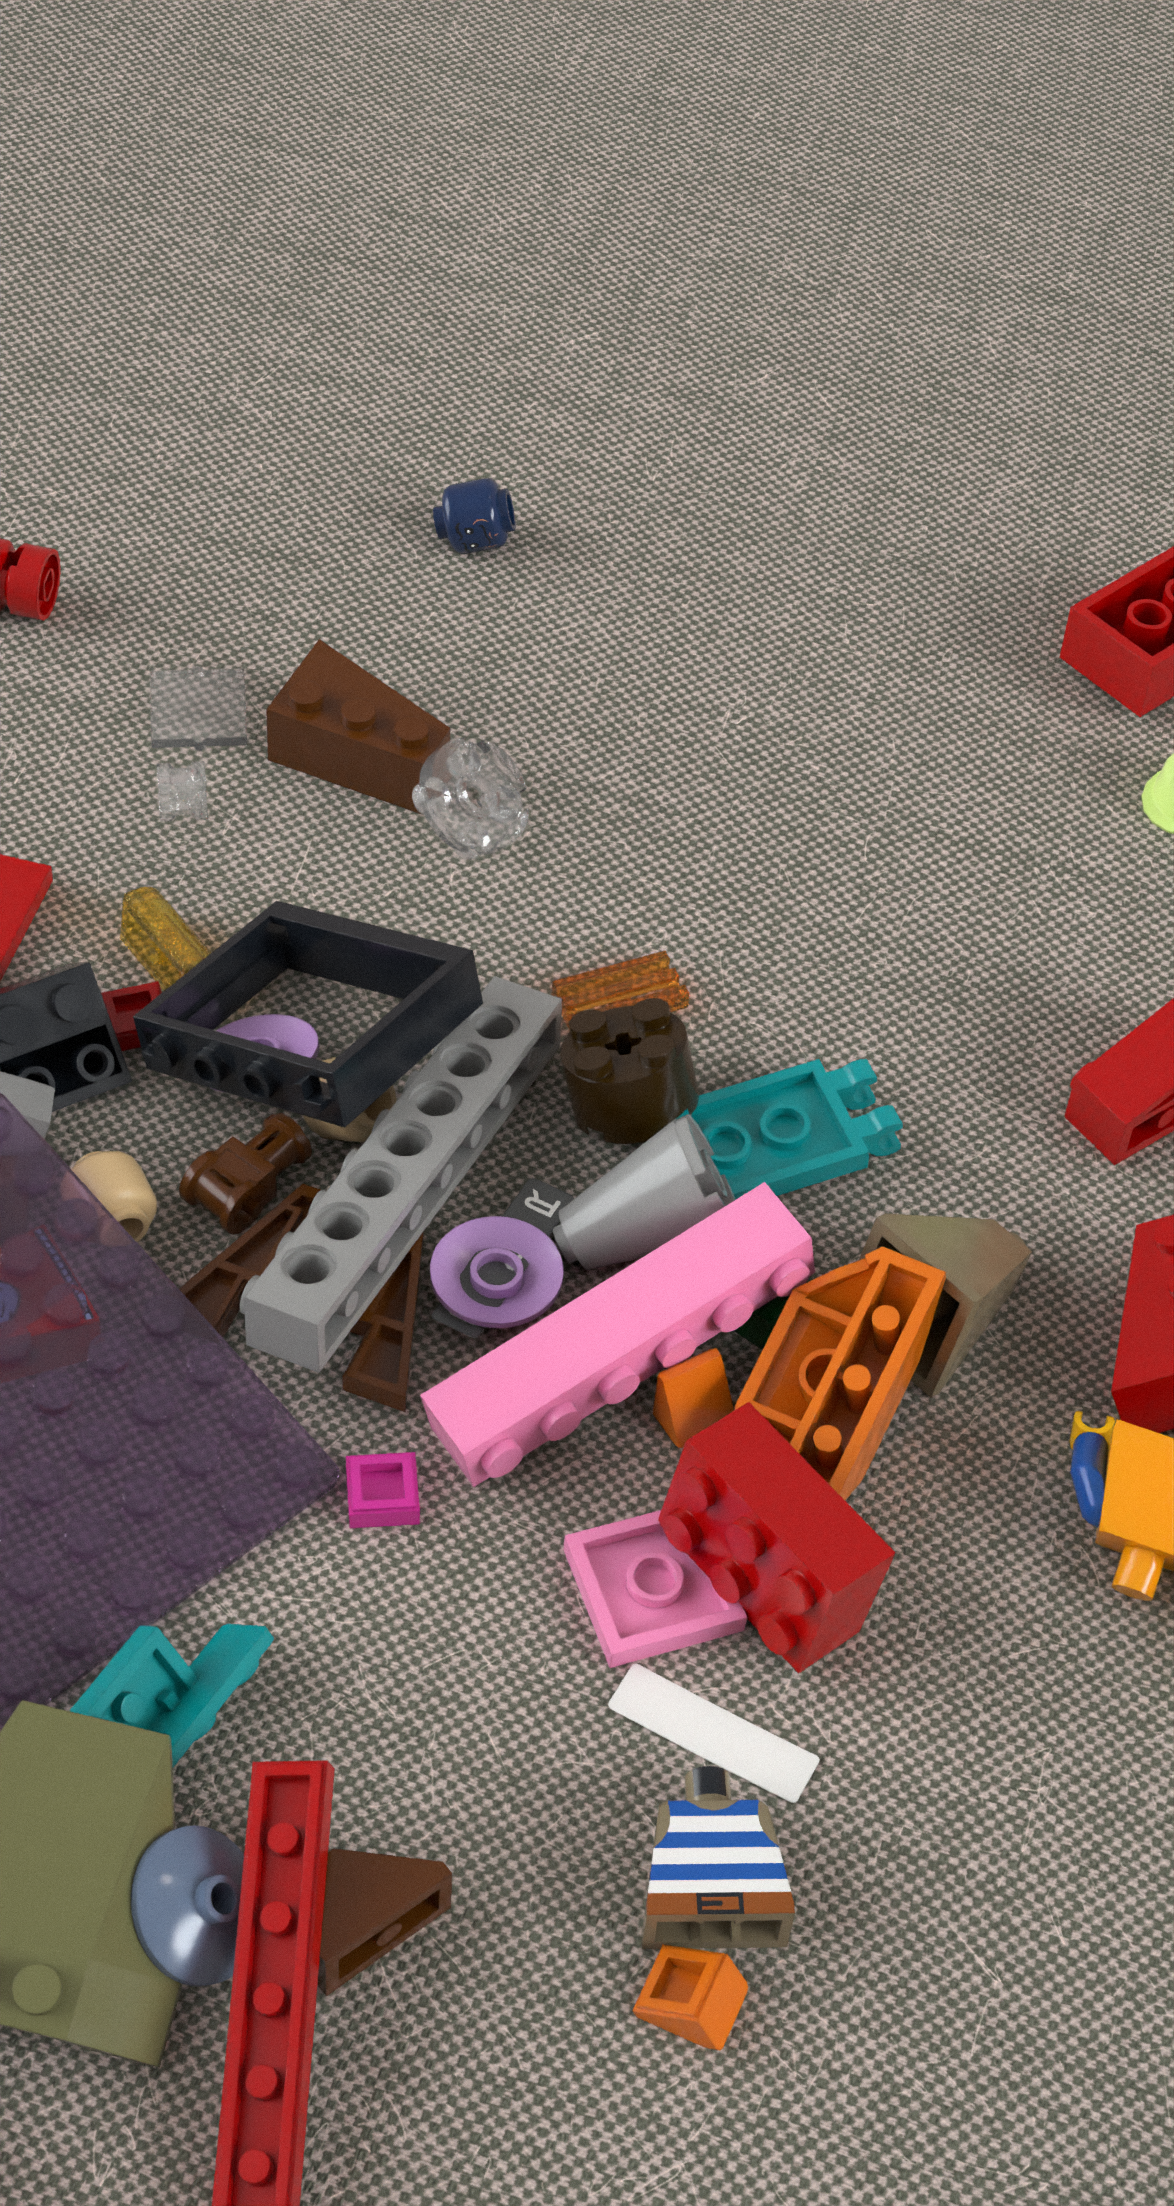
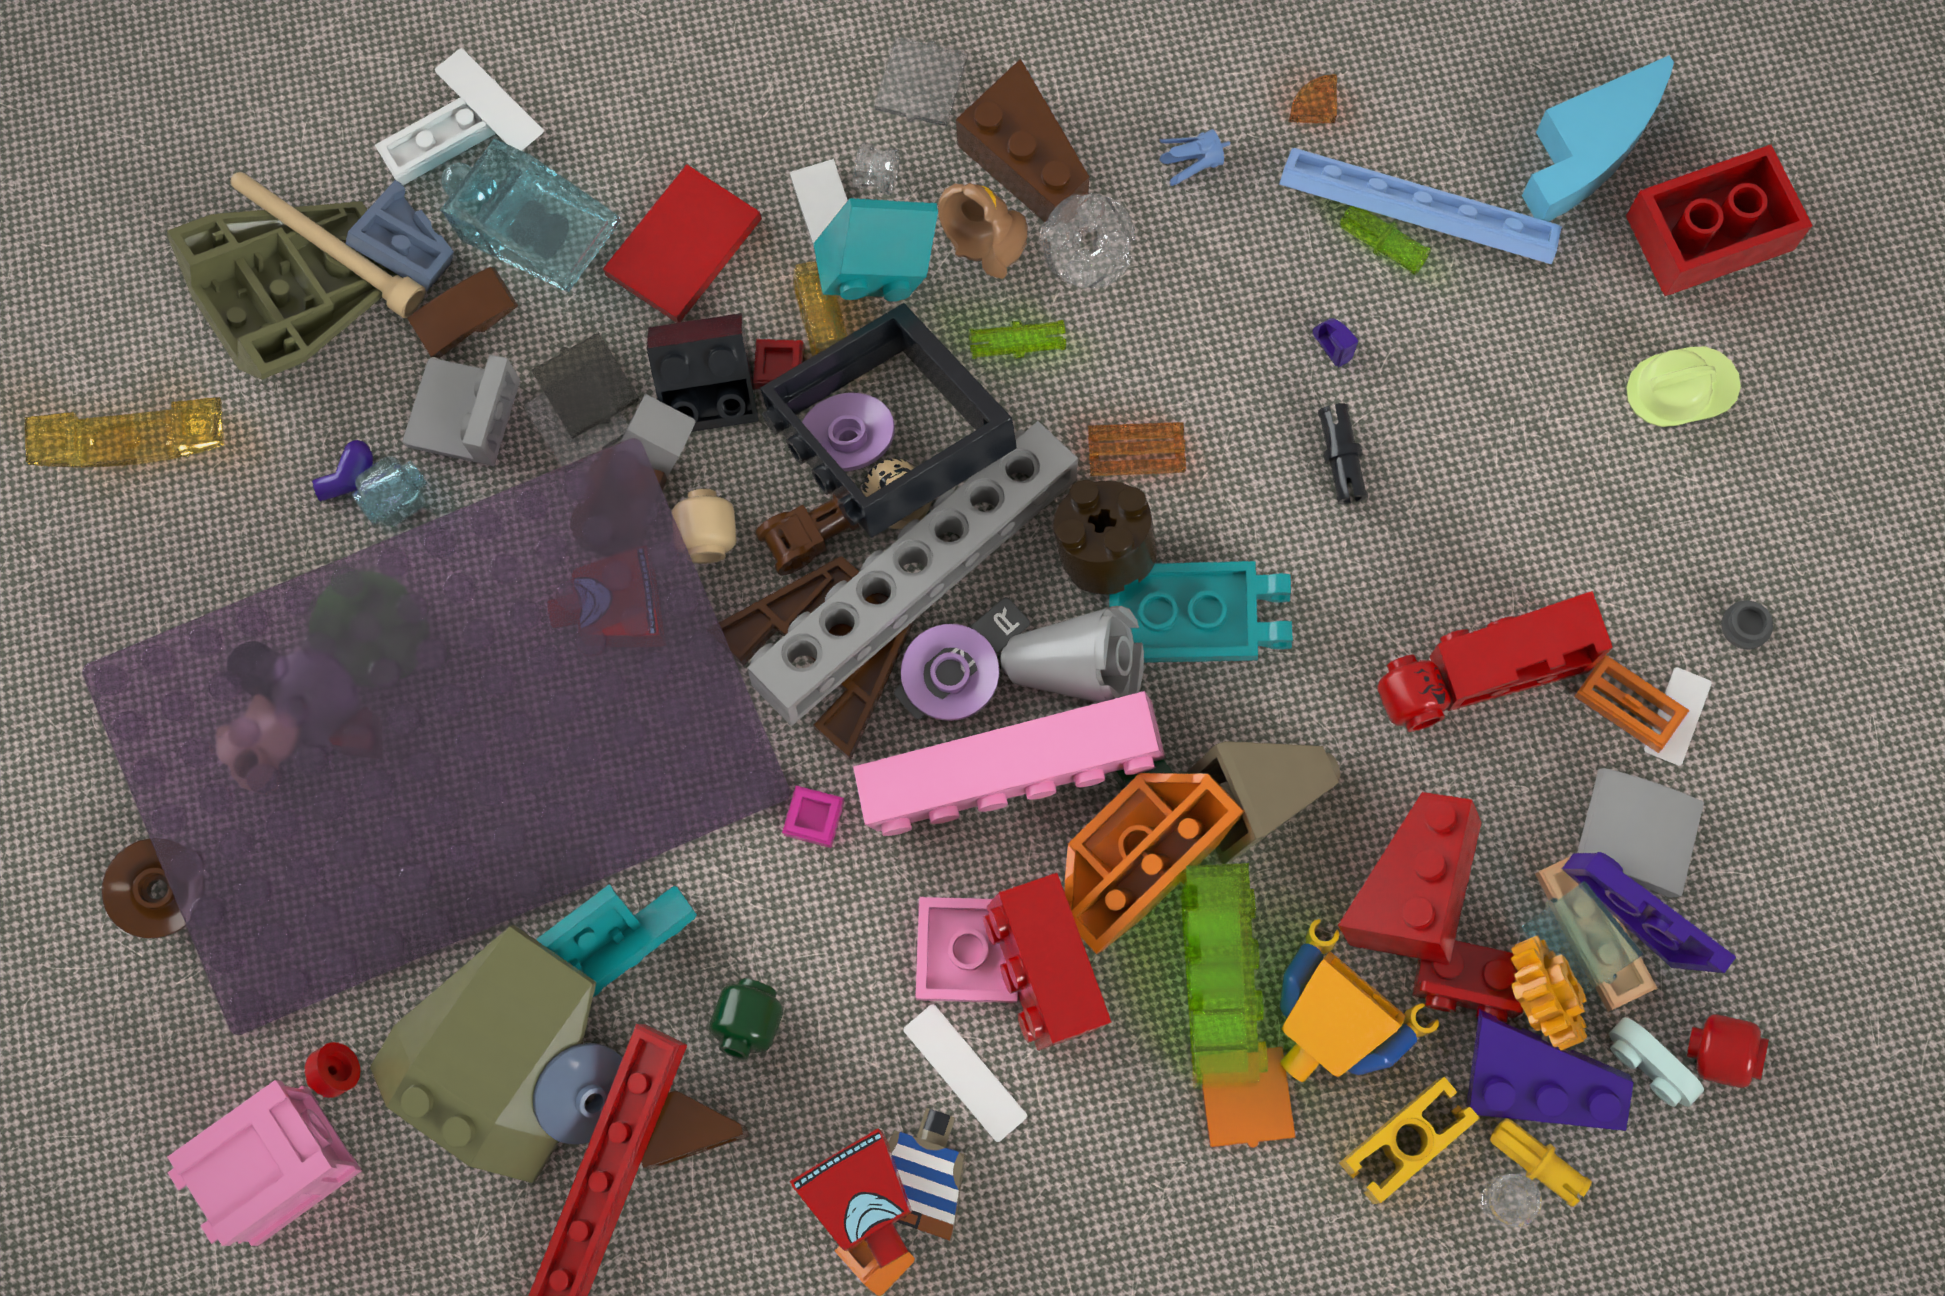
camera: 30 degrees right, 25 degrees up
(131, 847) = (819, 195): none -> white tile
(221, 846) = (876, 249): none -> teal slope
(334, 811) = (982, 227): none -> medium nougat hair
(392, 1740) = (746, 1018): none -> dark green head
(432, 916) = (1017, 339): none -> clear neon green pin
(560, 698) = (1204, 147): none -> medium blue piece
(651, 1882) = (859, 1197): none -> red torso
(671, 629) = (1316, 101): none -> clear orange tile
(692, 1396) = (1049, 820): orange slope -> none
(804, 833) = (1336, 341): none -> dark purple tile
(810, 730) = (1385, 238): none -> clear neon green axle
(834, 690) = (1421, 205): none -> light blue tile
(866, 937) = (1342, 453): none -> black pin
(987, 594) = (1593, 137): none -> medium azure slope
(993, 1493) = (1221, 977): none -> clear neon green wedge
(1071, 1142) = (1414, 693): none -> red head
(1088, 1646) = (1251, 1112): none -> orange piece

